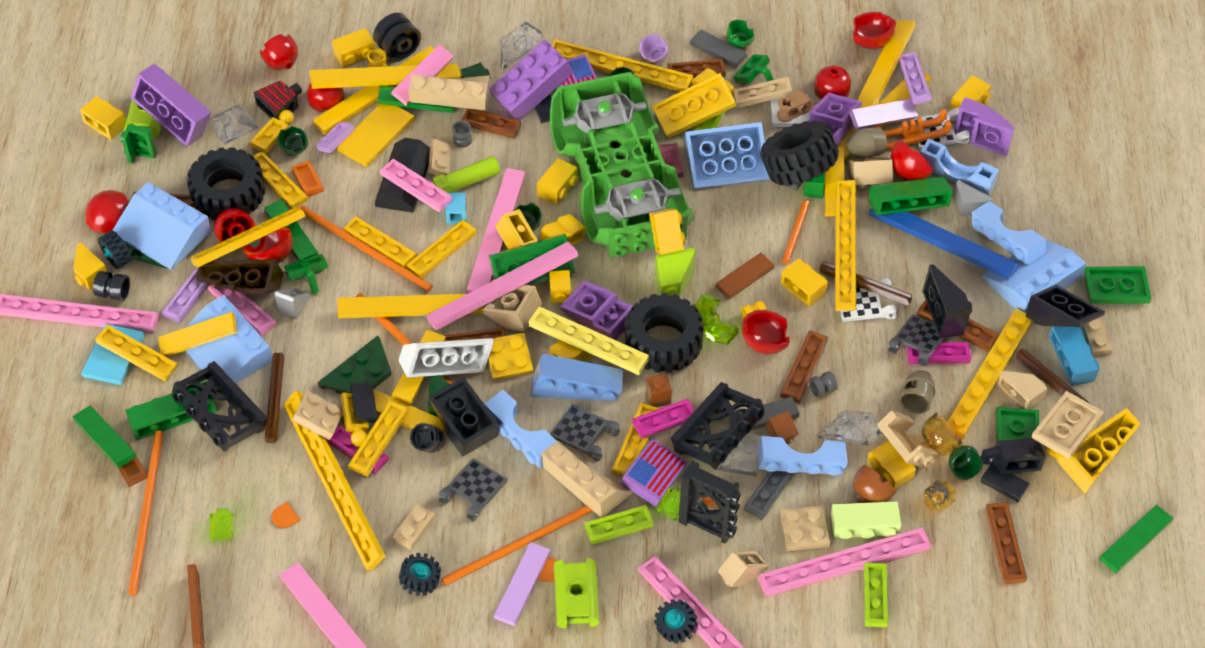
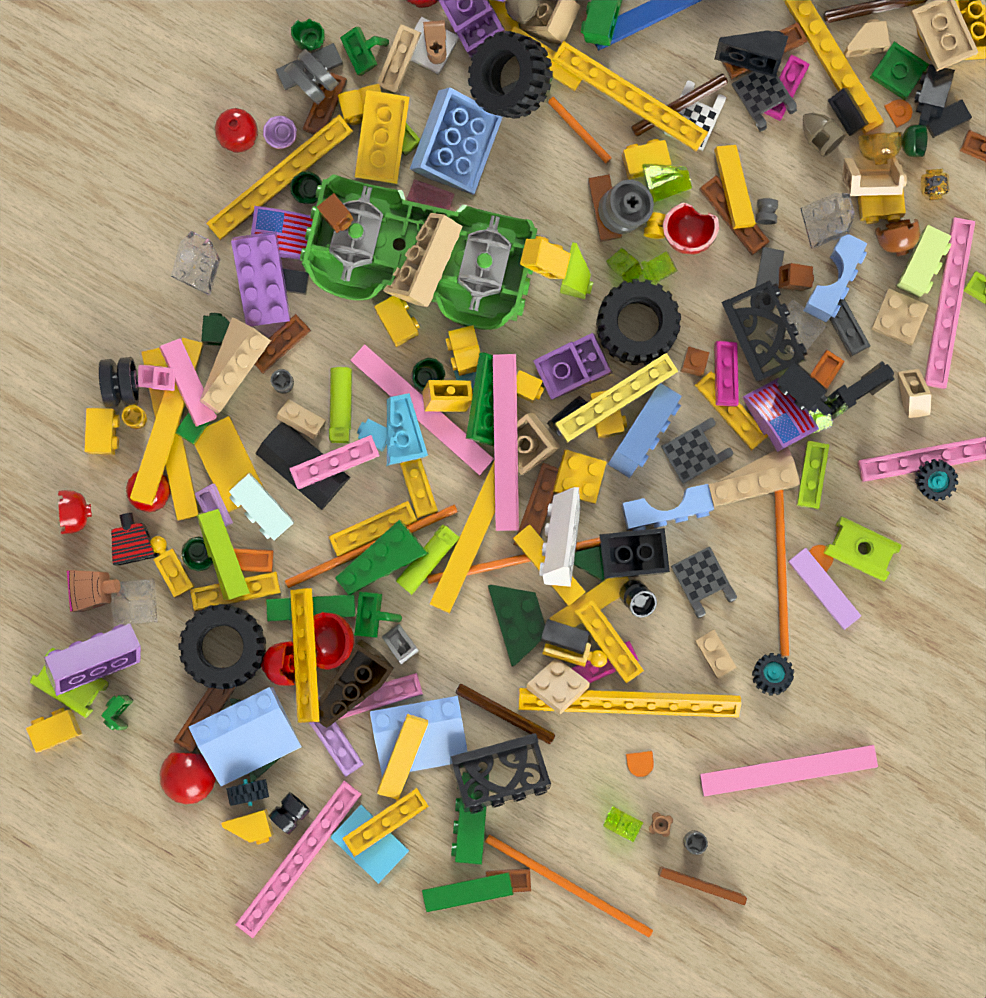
camera: 65 degrees left, 30 degrees up
(225, 90) = (90, 589): none -> nougat torso
(233, 585) = (695, 845): none -> dark grey wheel
(236, 548) = (665, 829): none -> medium nougat plate
(299, 151) = (223, 555): none -> lime slope
(353, 160) = (260, 507): none -> light aqua brick
(364, 254) = (388, 553): none -> green wing
(374, 284) = (420, 568): none -> lime piece
(414, 54) = (156, 377): none -> bright pink slope
(468, 219) = (403, 431): none -> medium azure wing
(607, 83) = (335, 213): none -> dark orange brick
(611, 156) = (425, 261): none -> tan wedge
(636, 25) = (236, 130): none -> red cylinder
(681, 456) = (805, 389): none -> black hinge
(707, 41) = (313, 74): none -> dark grey wheel
(752, 279) = (625, 206): none -> dark grey wheel
(795, 300) = (666, 180): none -> clear neon green wing
(826, 351) = (734, 186): none -> yellow tile
(953, 402) = (848, 111): none -> black tile
(983, 442) = (899, 111): none -> orange piece

